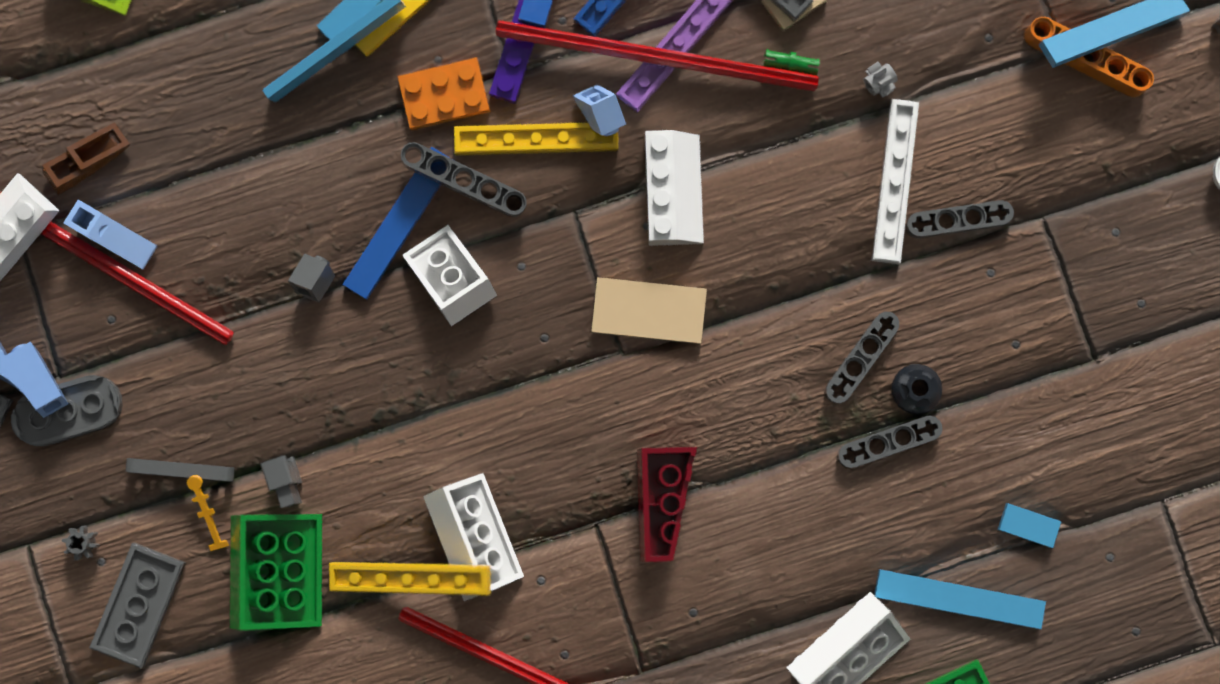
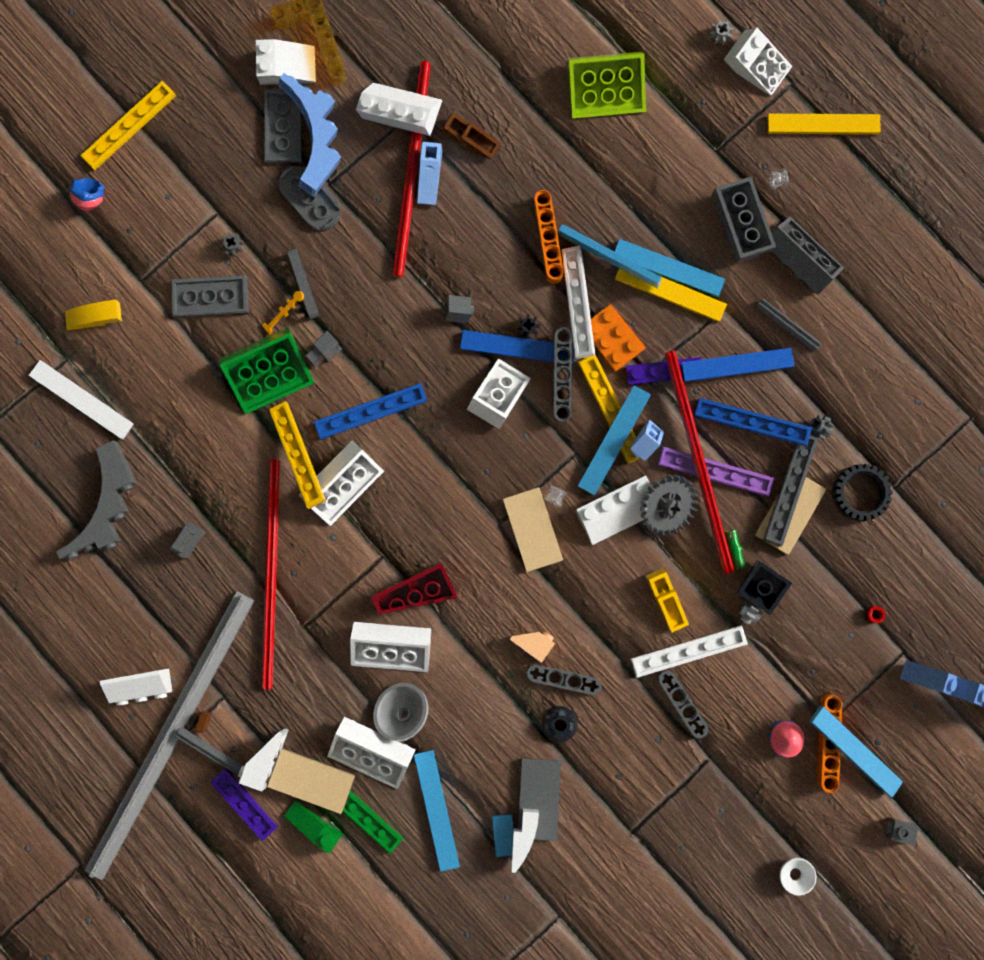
camera: 65 degrees right, 0 degrees up
(260, 108) = (548, 228): none -> orange beam
(376, 116) = (578, 302): none -> white tile
(380, 203) = (524, 331): none -> black gear
(395, 456) = (370, 411): none -> blue tile
(580, 152) = (614, 440): none -> dark azure tile
(618, 261) = (555, 496): none -> clear wheel
(705, 118) = (677, 509): none -> dark grey gear
(720, 565) = (390, 646): none -> white slope
(799, 374) = (535, 644): none -> light nougat slope
(802, 599) = (392, 708): none -> light grey dish
(817, 178) = (667, 599): none -> yellow slope
(856, 47) = (764, 587): none -> black slope
(890, 444) = (519, 719): dark grey beam -> none
(1002, 458) = (541, 791): none -> dark grey tile
(1045, 499) = (524, 837): none -> white slope
(1060, 108) = (786, 739): none -> coral hair

